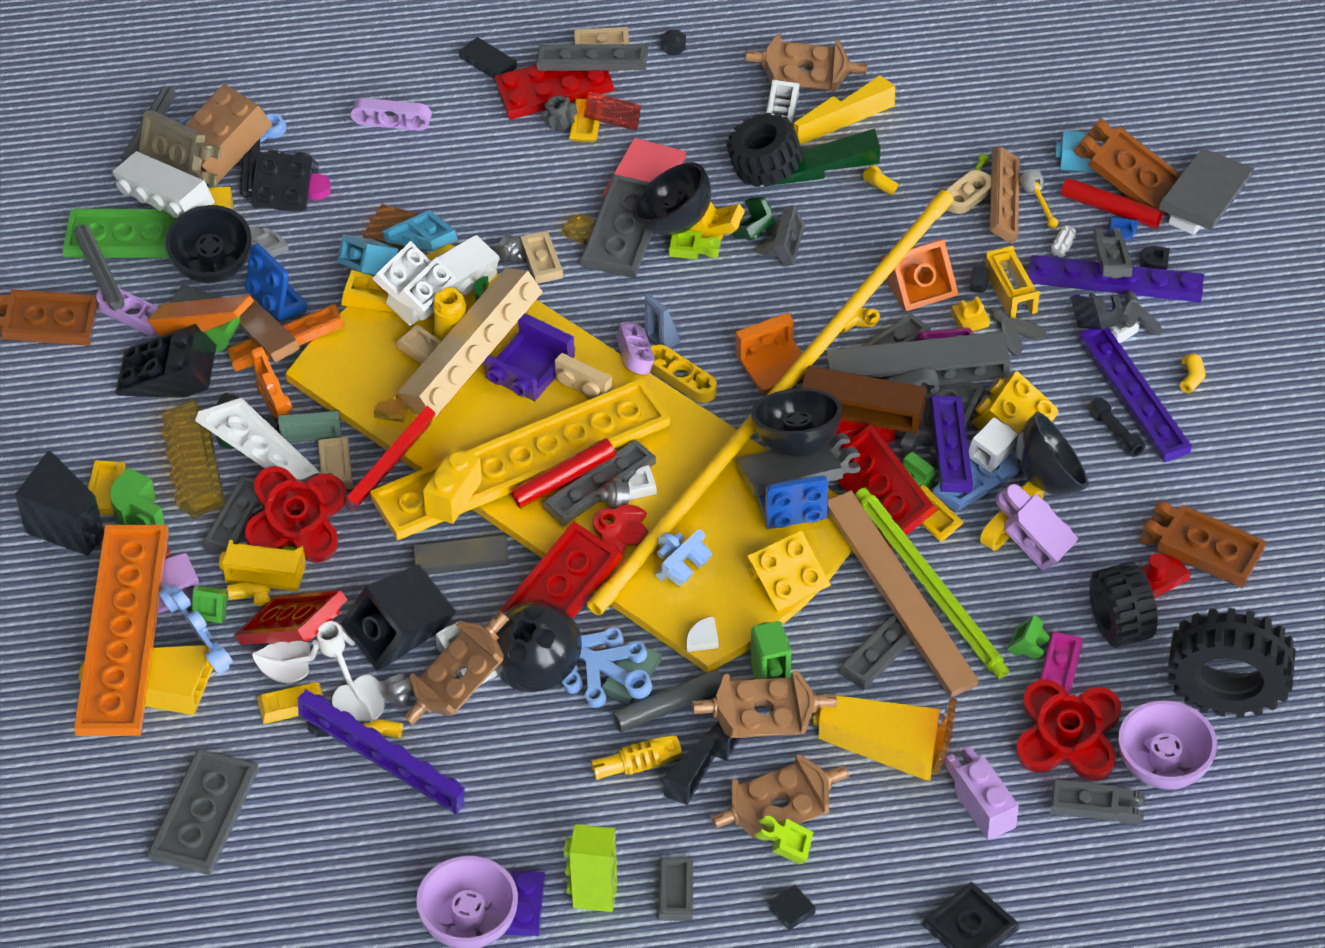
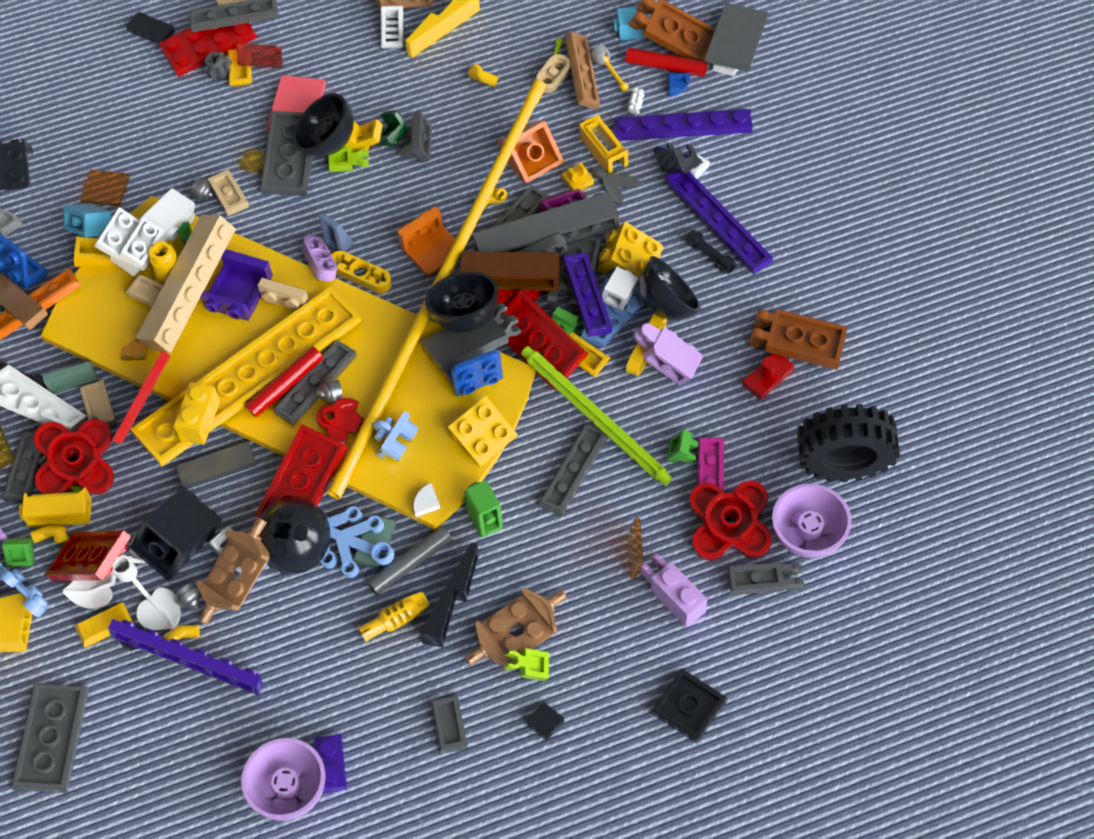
camera: 10 degrees left, 10 degrees up
(269, 385) = (30, 349): orange wing -> none
(319, 187) = (36, 165): dark pink tile -> none
(409, 122) = (67, 91): lavender beam -> none
(424, 231) = (127, 189): medium azure wing -> none
(592, 867) = (379, 728): lime brick -> none
(642, 483) = (349, 376): white tile -> none
(764, 149) = (387, 68): black tyre -> none
(787, 698) = (504, 542): medium nougat plate -> none
(846, 152) = (441, 62): dark green slope -> none
(883, 732) = (584, 553): yellow slope -> none
(901, 594) = (575, 431): medium nougat tile -> none
(979, 279) = (578, 146): black tile -> none
(1112, 254) = (677, 106): dark grey hinge -> none
(1123, 604) = (751, 407): black tyre -> none
(1136, 312) = (704, 152): dark grey piece -> none
(1154, 257) = (709, 102): black tile -> none
(1196, 371) = (762, 194): yellow arm -> none

